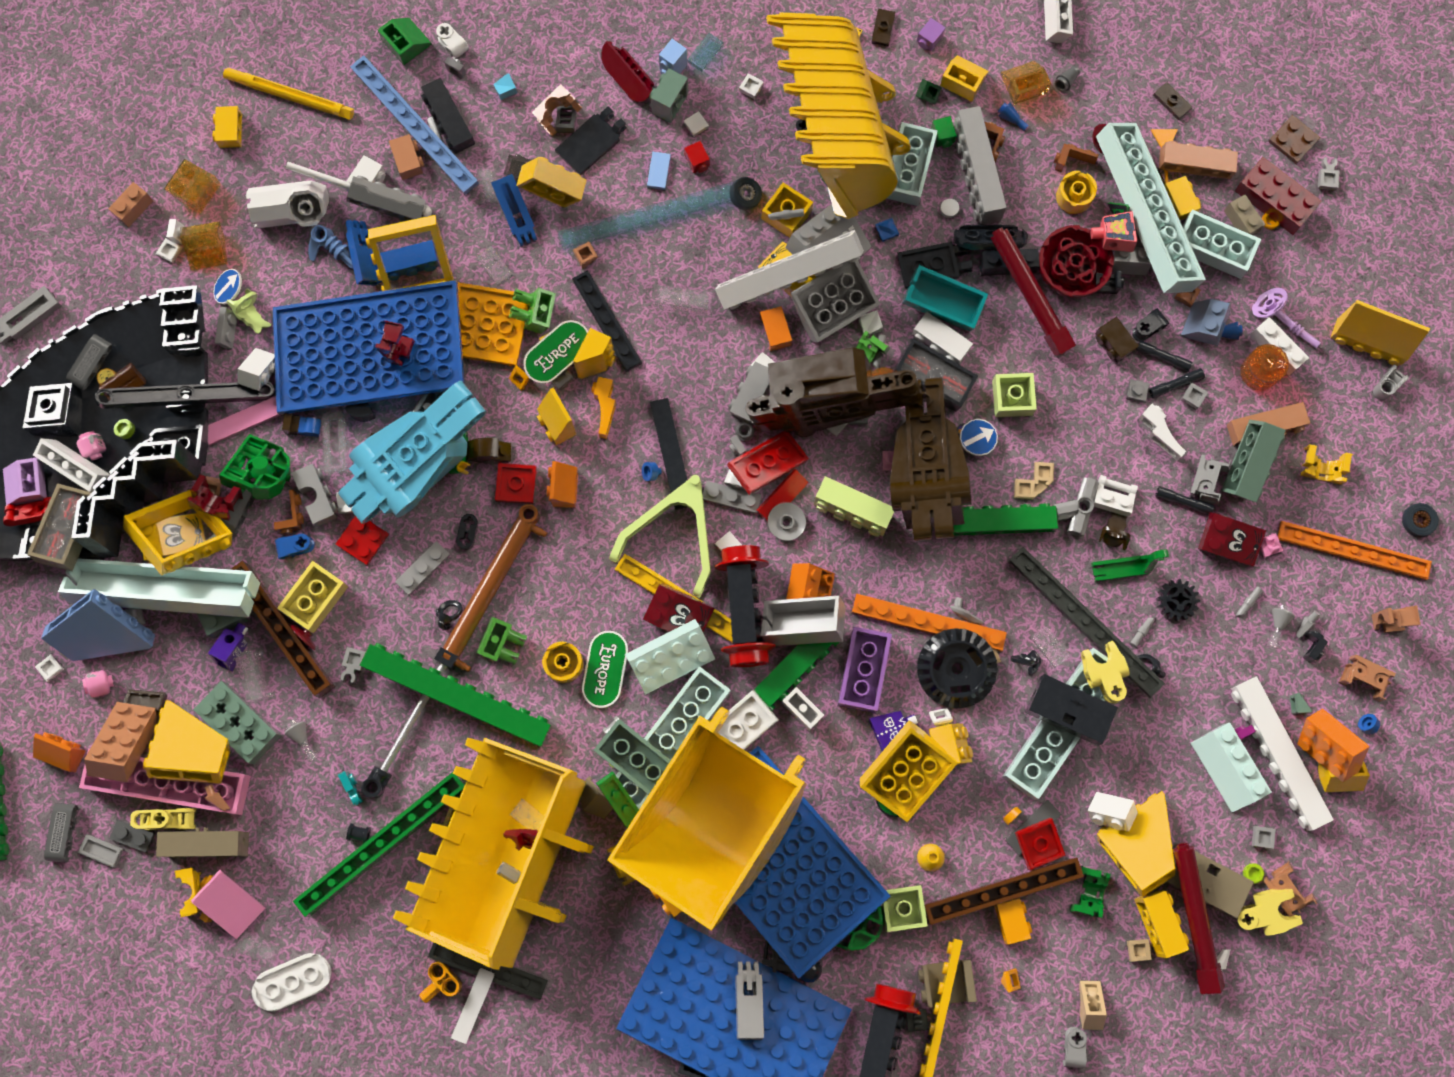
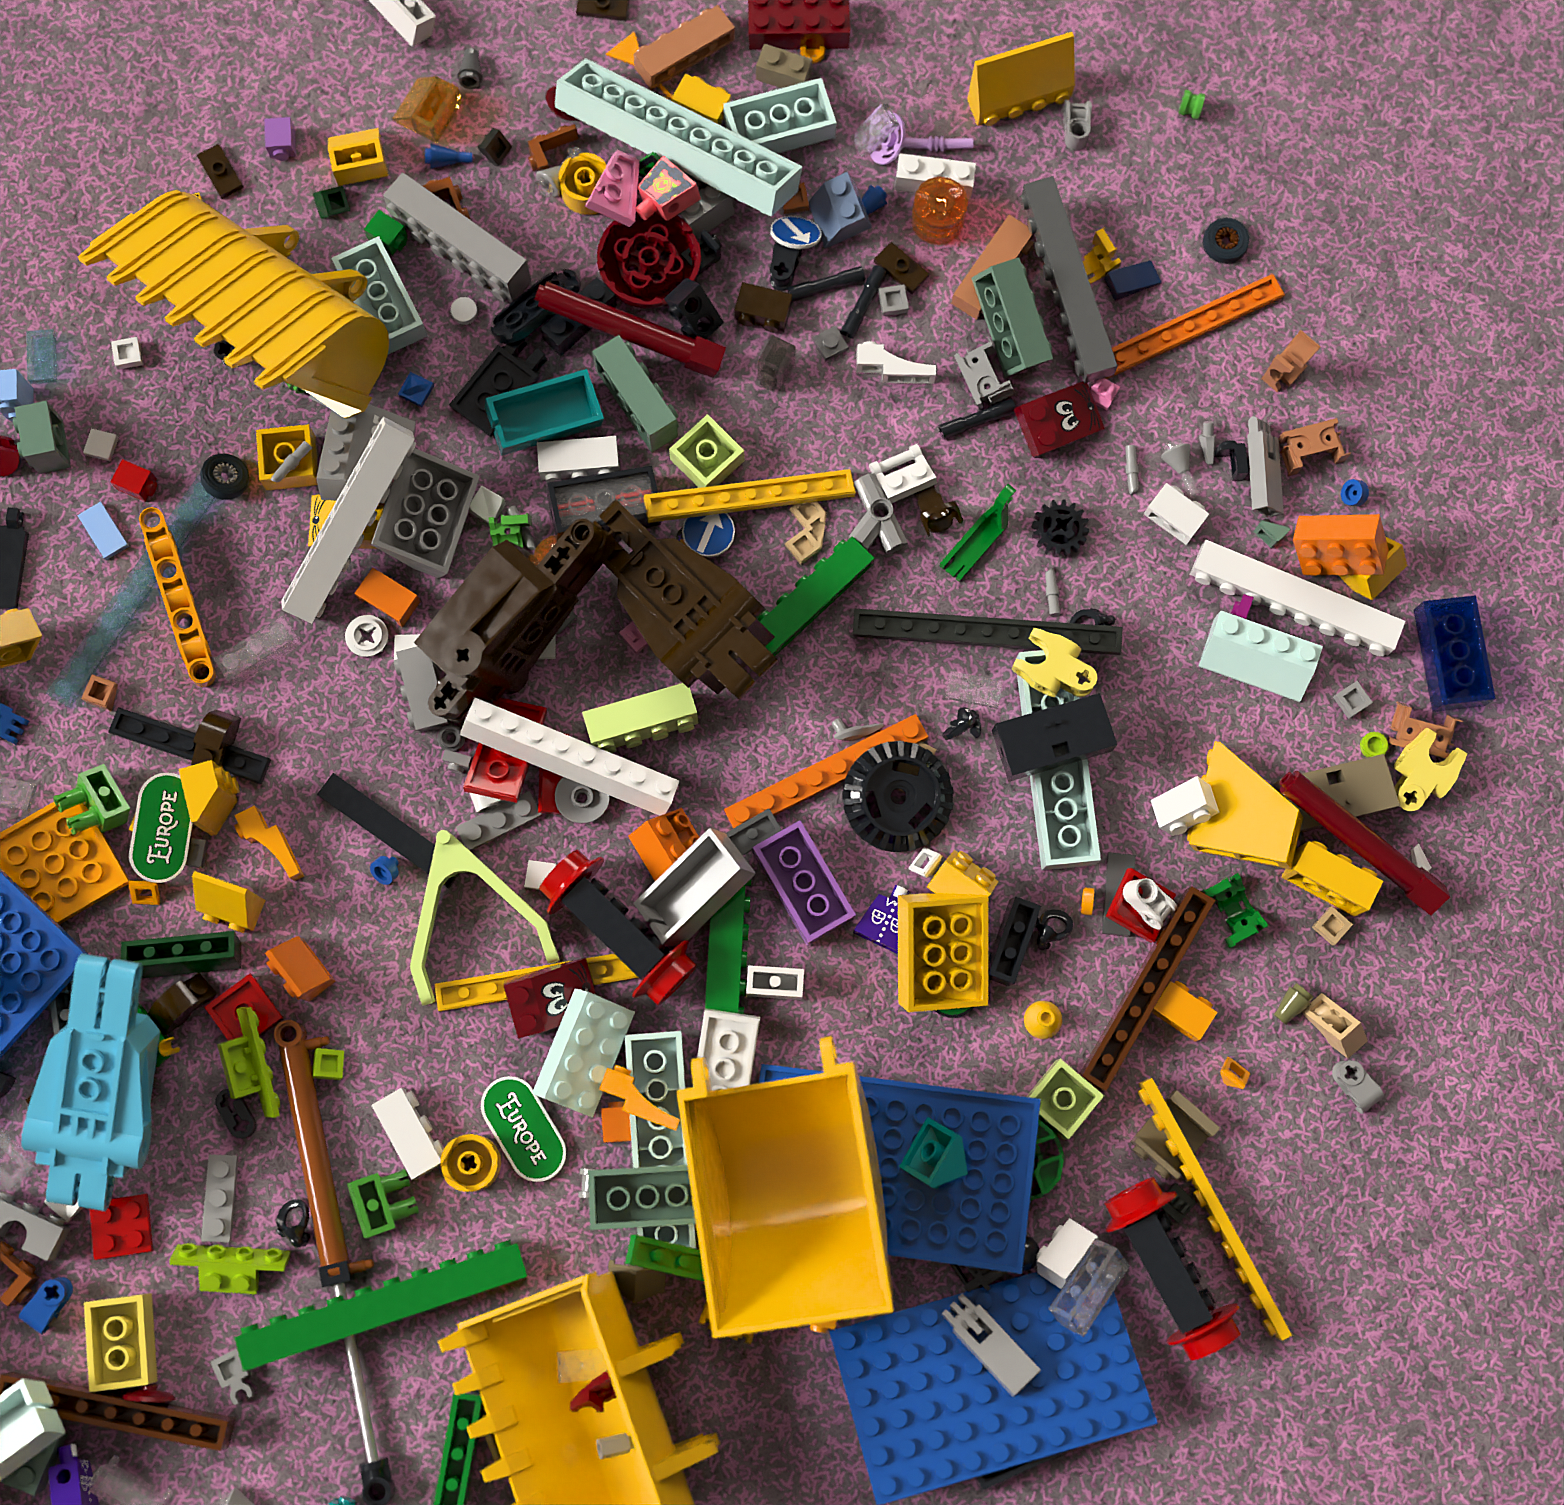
camera: 45 degrees left, 0 degrees up
(397, 608) = (229, 1267): none -> lime bracket
(493, 512) = (246, 1065): none -> lime bracket
(512, 427) = (184, 954): none -> dark green brick
(535, 547) = (328, 1064): none -> lime plate
(545, 619) = (409, 1132): none -> white brick
(622, 326) = (213, 736): none -> dark brown brick
(655, 708) = (615, 1123): none -> orange brick
(667, 237) = (177, 596): none -> light orange beam
(674, 689) = (621, 1084): none -> light orange slope
(740, 335) = (366, 623): none -> white gear
(797, 495) = (569, 757): none -> white brick
(807, 874) = (935, 1155): none -> teal slope
(828, 1019) = (1089, 1287): none -> clear brick
(832, 992) = (1064, 1252): none -> white brick
(861, 619) = (754, 831): none -> dark grey plate
(951, 800) = (1012, 940): none -> black brick
(973, 813) = (1046, 933): none -> black piece
(1003, 329) = (635, 393): none -> sand green brick
(1018, 436) = (749, 495): none -> yellow tile
(1043, 132) = (495, 146): none -> pearl dark grey tile
(1046, 849) = (1154, 903): none -> white piece
(1057, 173) = (548, 179): none -> piece
(1078, 310) = (696, 310): none -> black brick
(1078, 972) = (1293, 1003): none -> olive cone
(1090, 209) = (617, 189): none -> bright pink wing
(1096, 376) = (776, 363): none -> clear smoke brick
(1171, 313) = (795, 232): none -> blue piece
(1215, 381) = (901, 267): none -> dark brown plate
(1253, 648) = (1176, 513): none -> white brick
(1266, 292) = (874, 130): none -> clear plate
(1305, 466) = (1068, 280): none -> dark grey brick
(1327, 666) = (1264, 469): none -> light grey hinge
(1344, 496) = (1131, 279): none -> dark blue slope
(1346, 862) = (1454, 653): none -> clear blue brick

